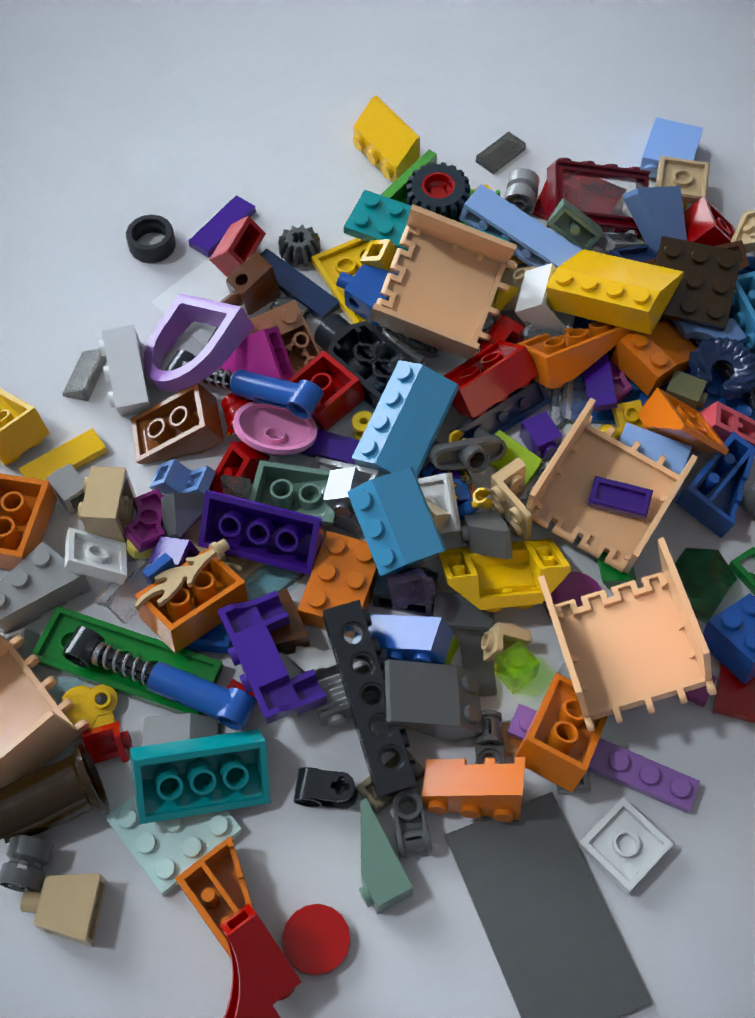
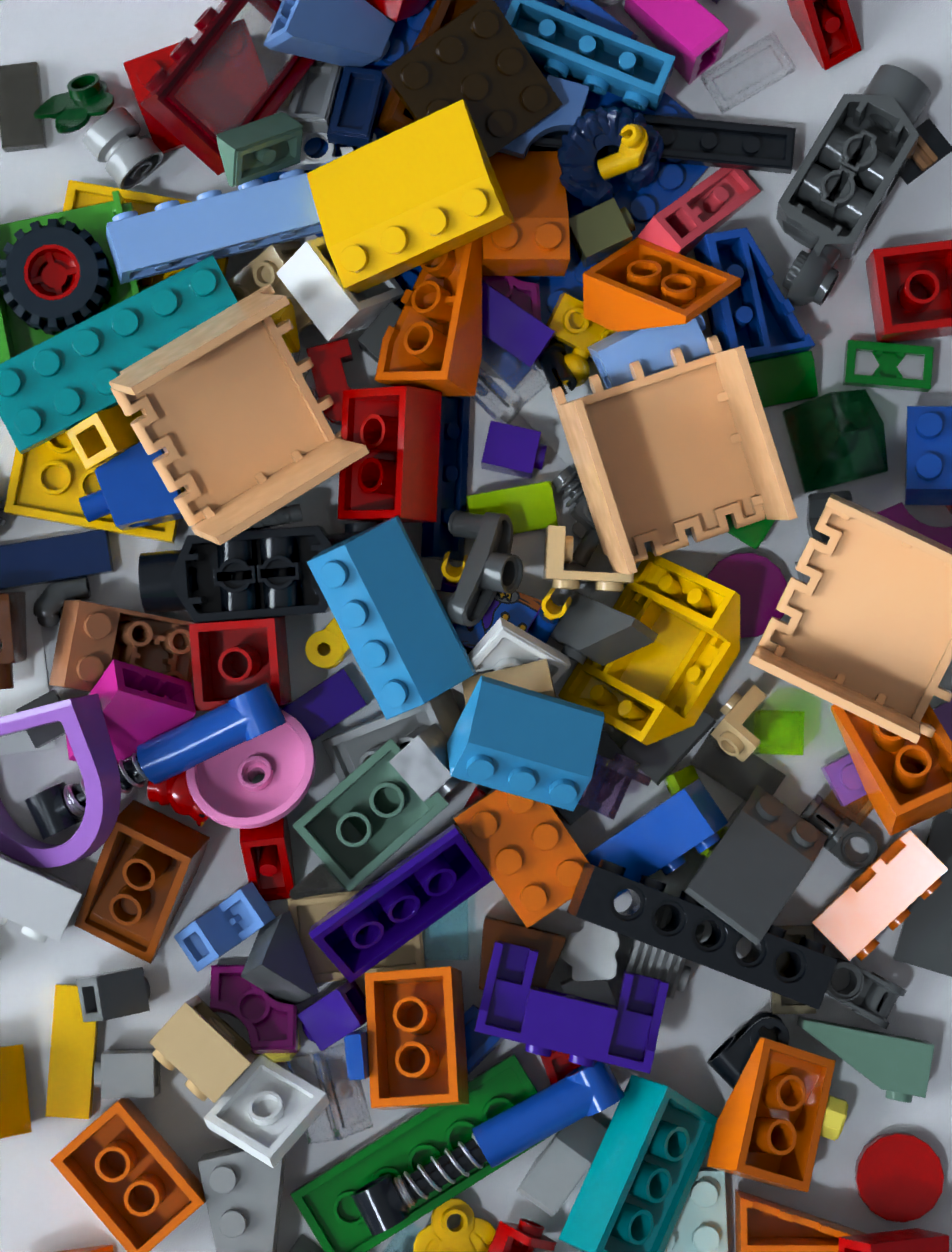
camera: 45 degrees left, 25 degrees up
(107, 450) = (113, 994): none -> dark grey brick
(176, 576) = (385, 1040): tan piece -> none
(295, 824) = (774, 1117): none -> orange slope
(321, 865) = (834, 1117): none -> light yellow tile
(528, 164) = (72, 110): none -> dark green plate
(601, 420) = (552, 360): none -> black pin
(620, 498) = (686, 448): dark purple tile -> none
(694, 527) = (785, 378): none -> green slope
(742, 366) = (630, 153): none -> yellow arm

